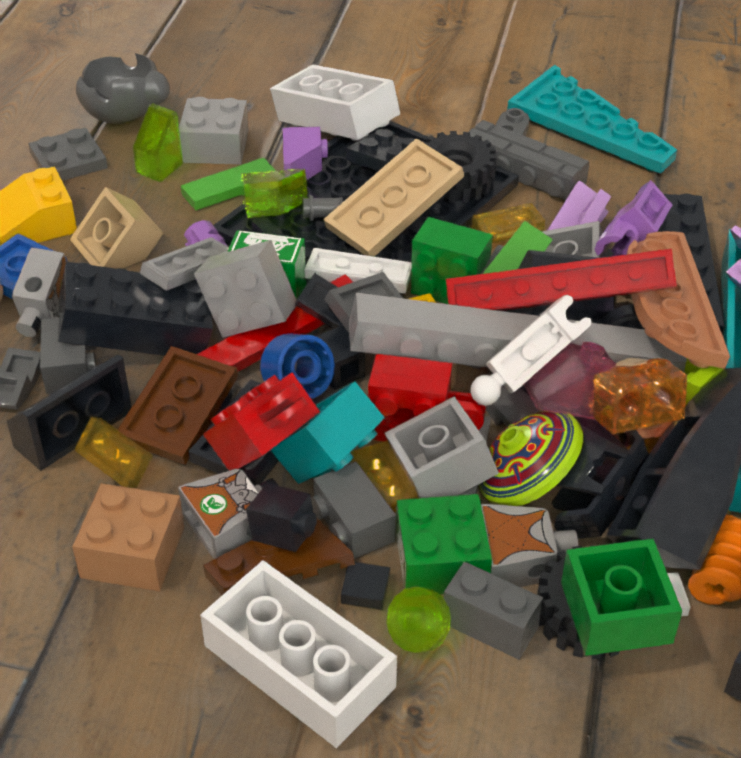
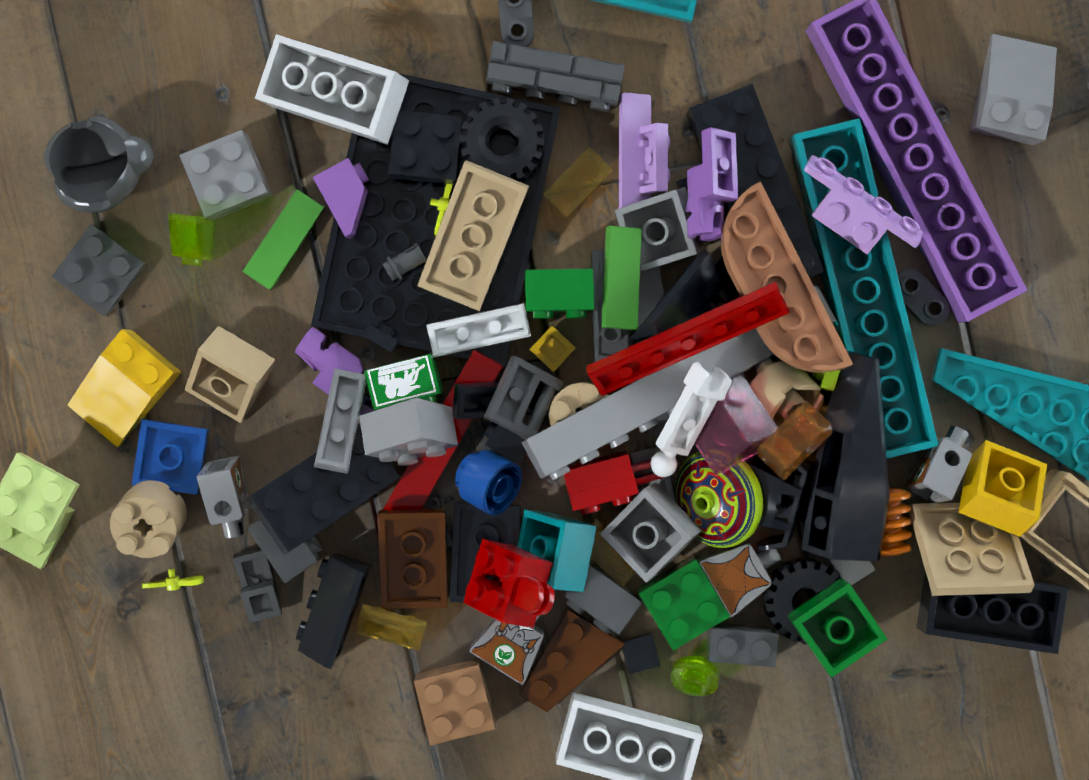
camera: 20 degrees left, 45 degrees up
(273, 191) = (355, 283): clear neon green slope -> none
(281, 517) = (564, 649): black brick -> none

